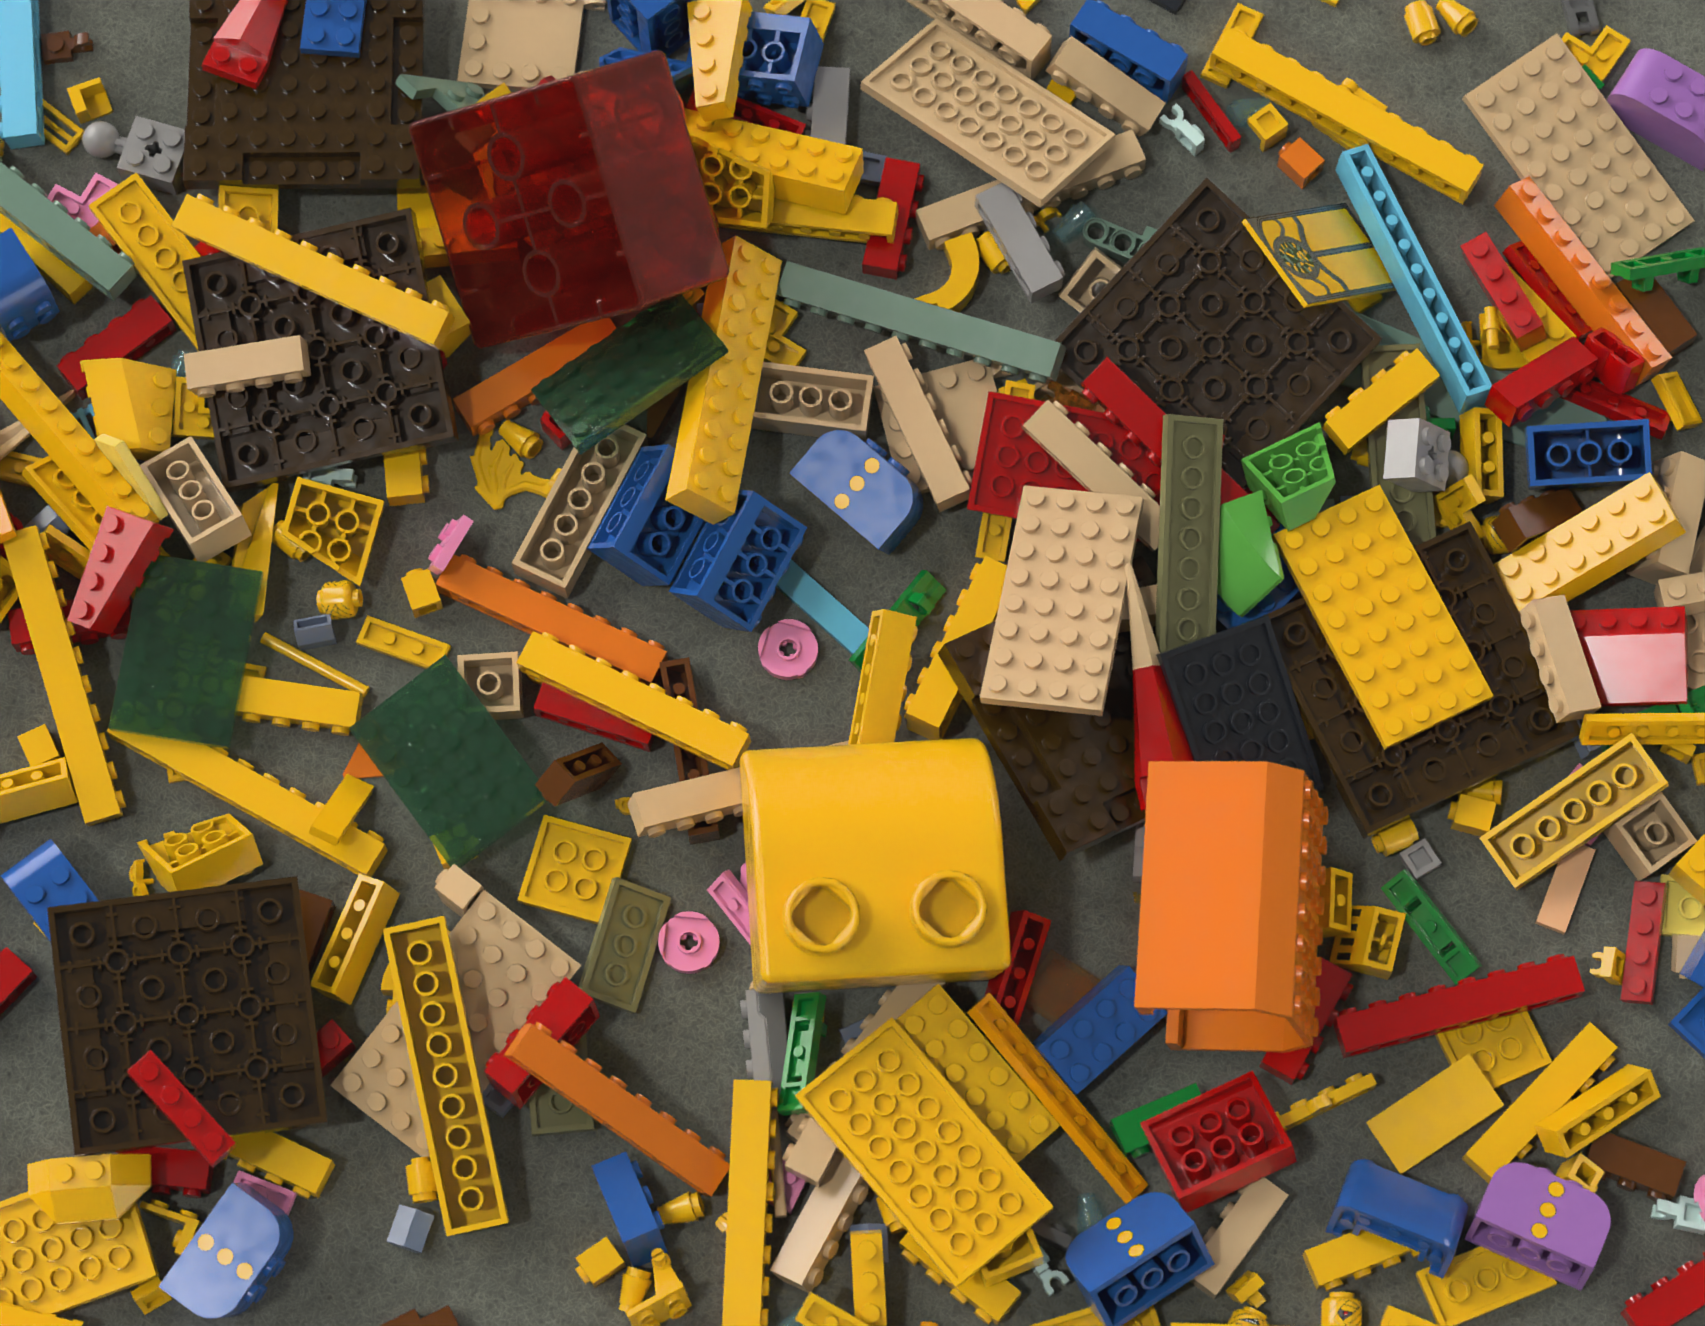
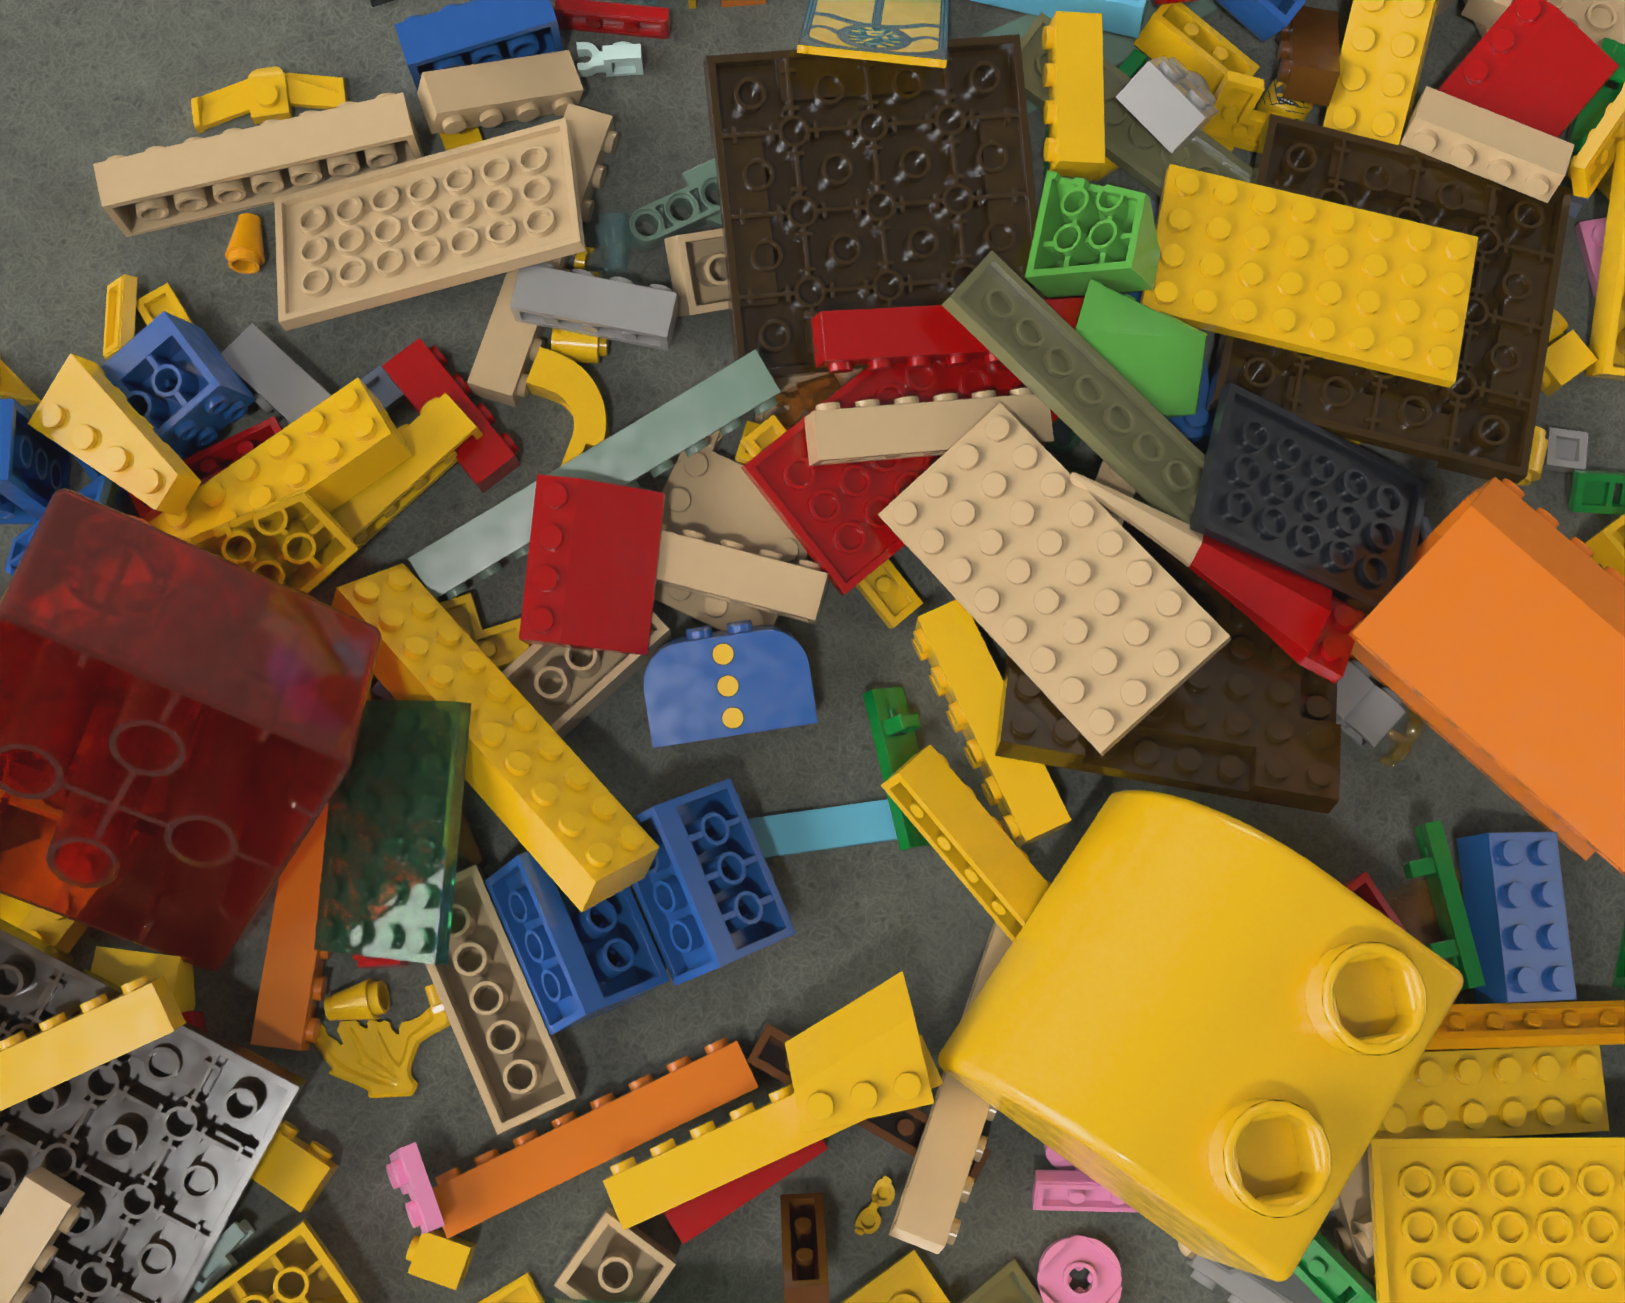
camera: 55 degrees left, 5 degrees up
(706, 709) = (860, 1061): none -> yellow wedge
(781, 634) = (811, 900): bright pink plate -> none
(863, 358) = (591, 565): none -> red slope
(893, 27) = (246, 247): none -> light orange cone
(1088, 959) = (1447, 902): none -> green hinge

